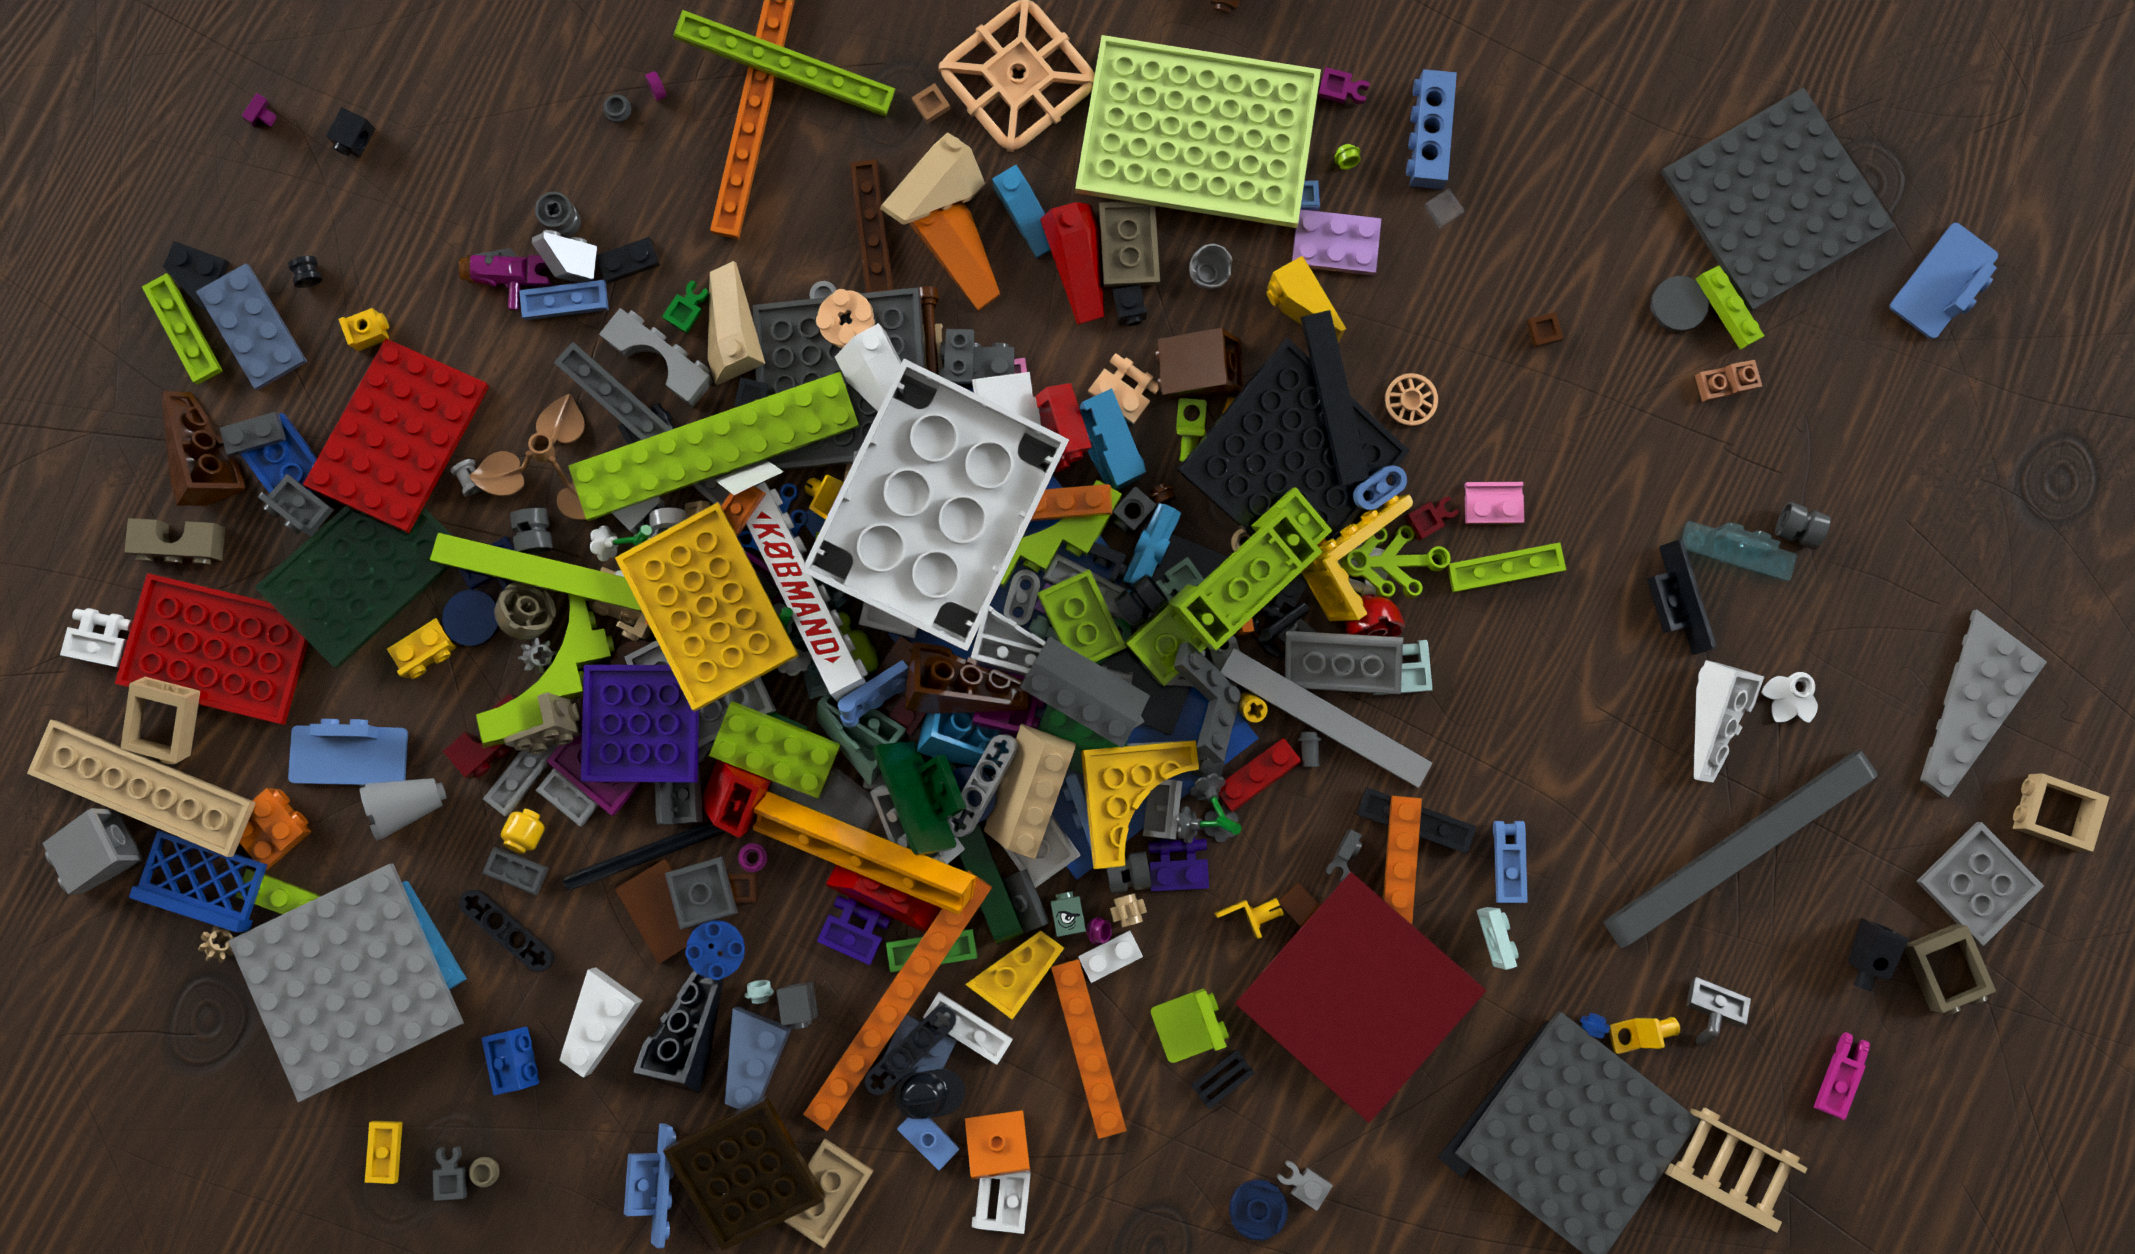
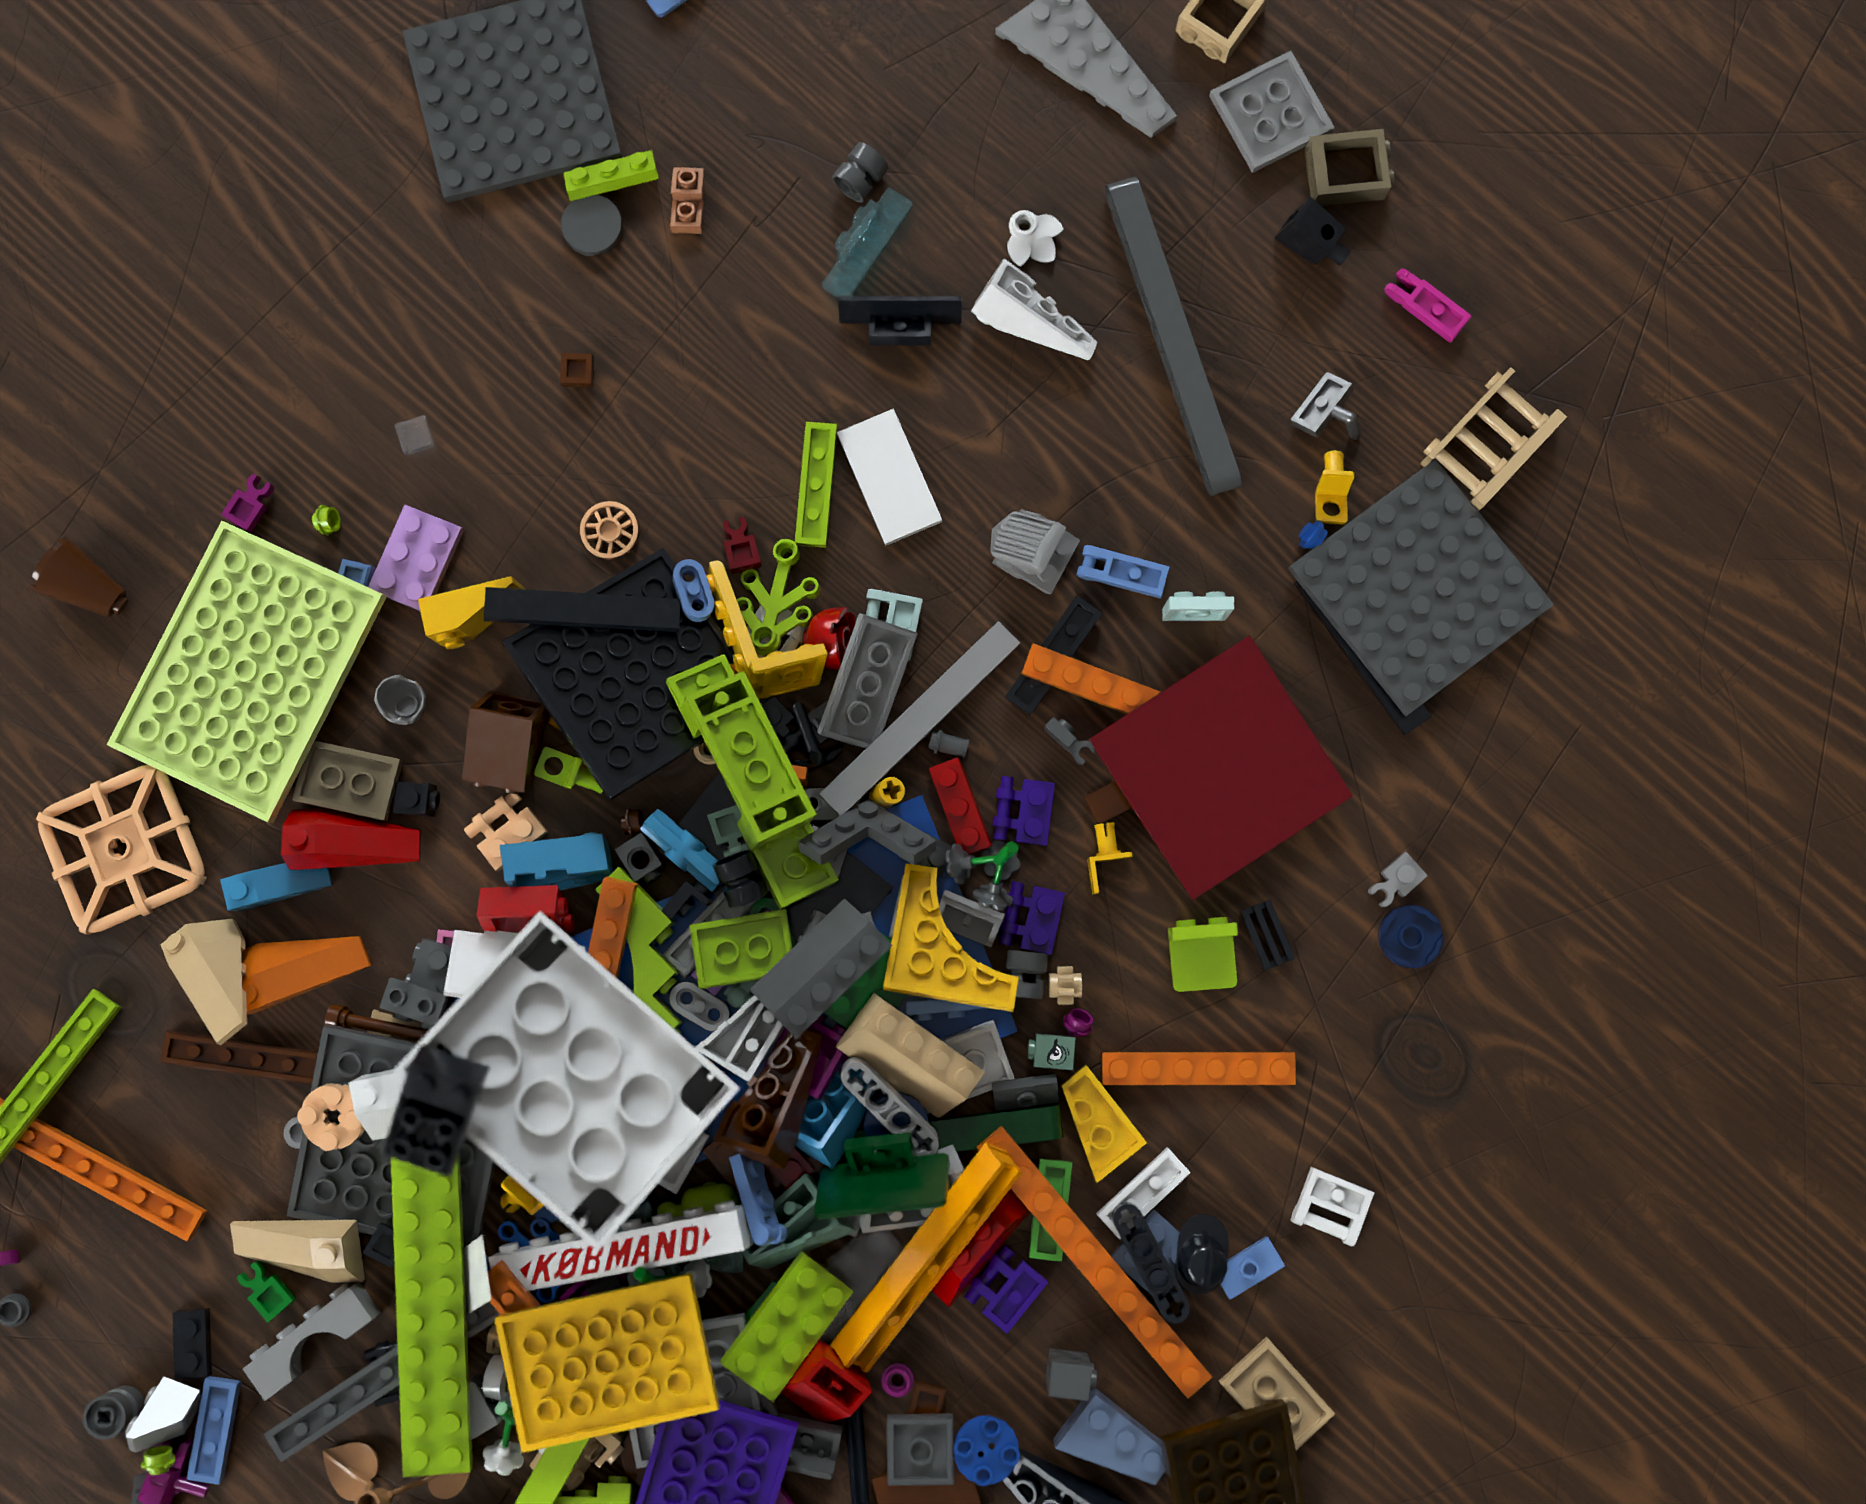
camera: 70 degrees left, 0 degrees up
(530, 263) = (158, 1459): none -> lime plate
(759, 991) = (1043, 1412): light aqua plate -> none
(881, 403) = (435, 1110): none -> black slope
(931, 103) = (122, 953): medium nougat plate -> none
(997, 1144) = (1274, 1195): orange plate -> none
(1110, 956) = (1108, 1017): white plate -> none
(1271, 841) = (1034, 811): none -> dark purple plate
(1440, 87) = (282, 400): medium blue brick -> none
(1494, 503) = (744, 477): bright pink plate -> none
(1506, 775) = (1032, 548): none -> light grey piece
(1532, 630) = (889, 477): none -> white tile

